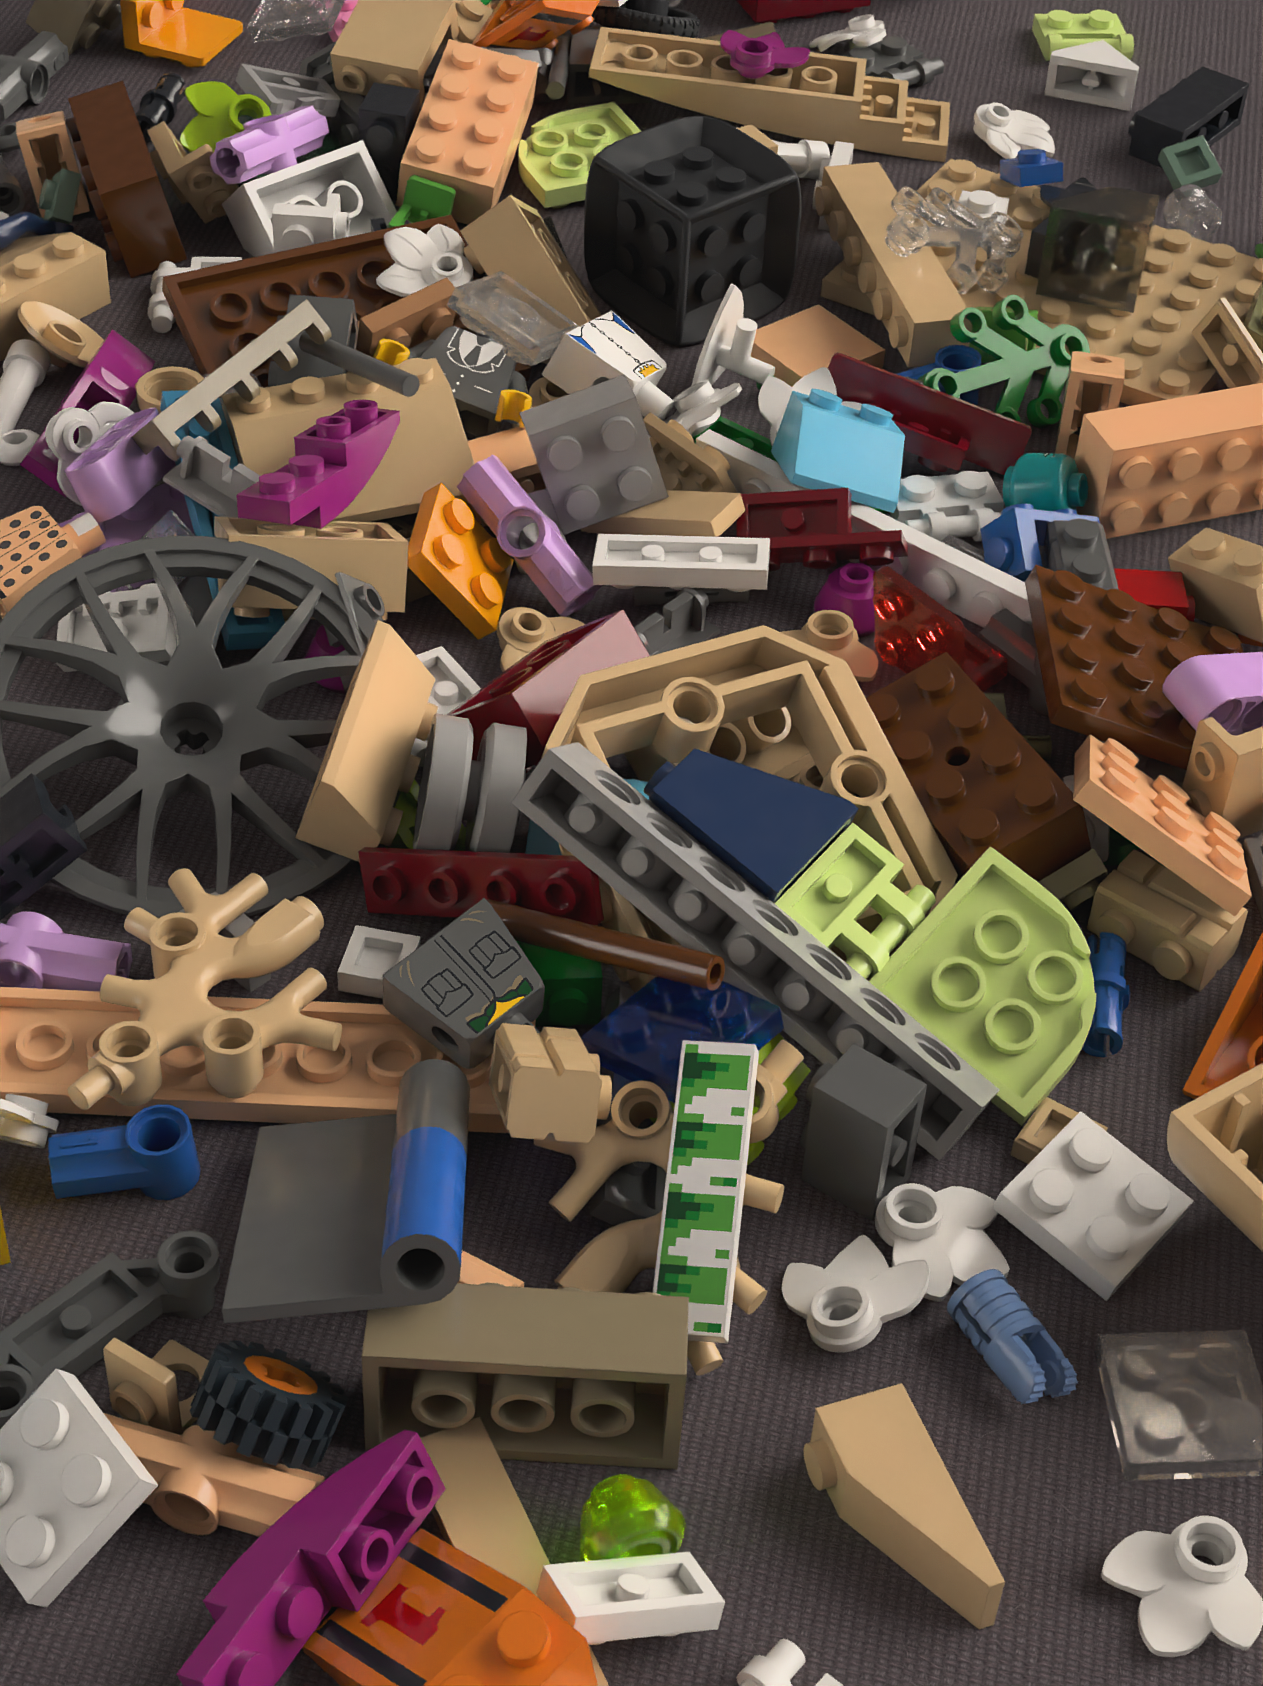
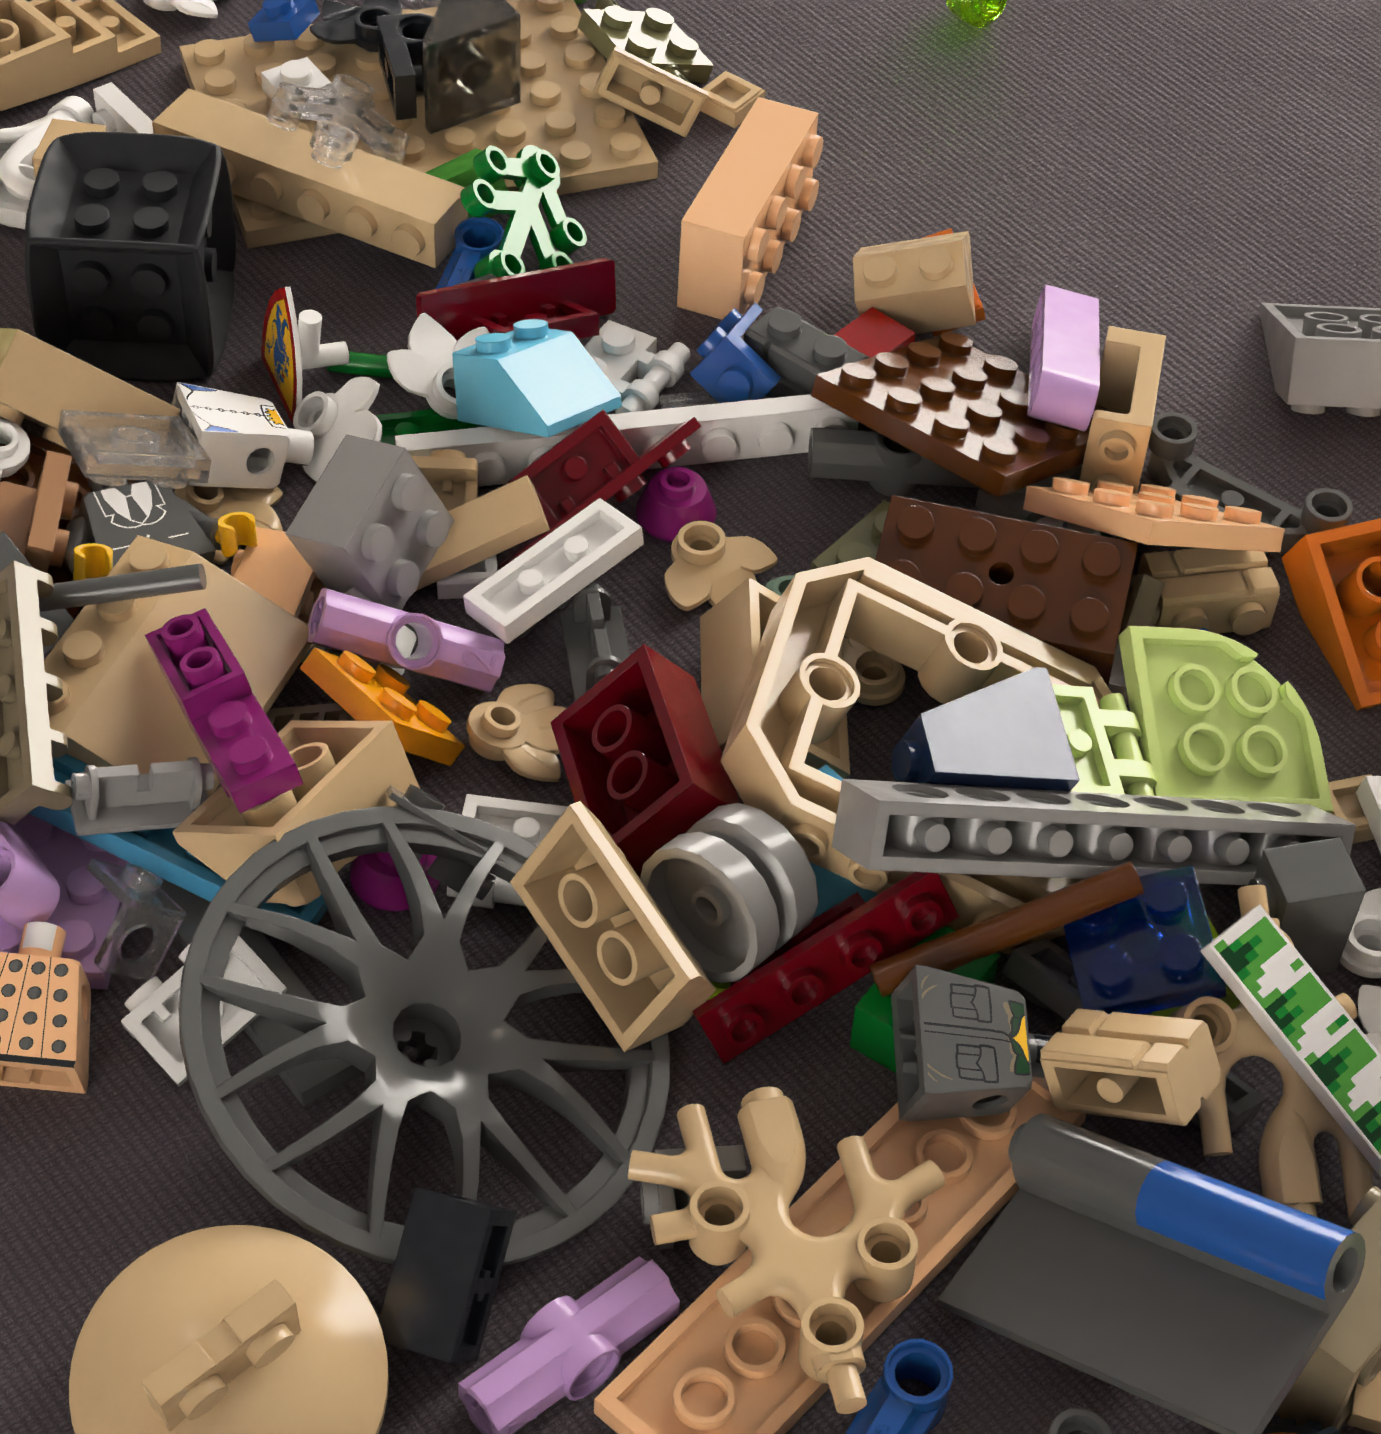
camera: 50 degrees left, 5 degrees up
(371, 955) = (819, 1091): white plate -> none
(808, 343) = (342, 292): light nougat tile -> none
(917, 629) = (797, 497): clear red bracket -> none
(1045, 482) = (681, 304): teal head -> none
(1091, 386) = (617, 208): light nougat torso -> none

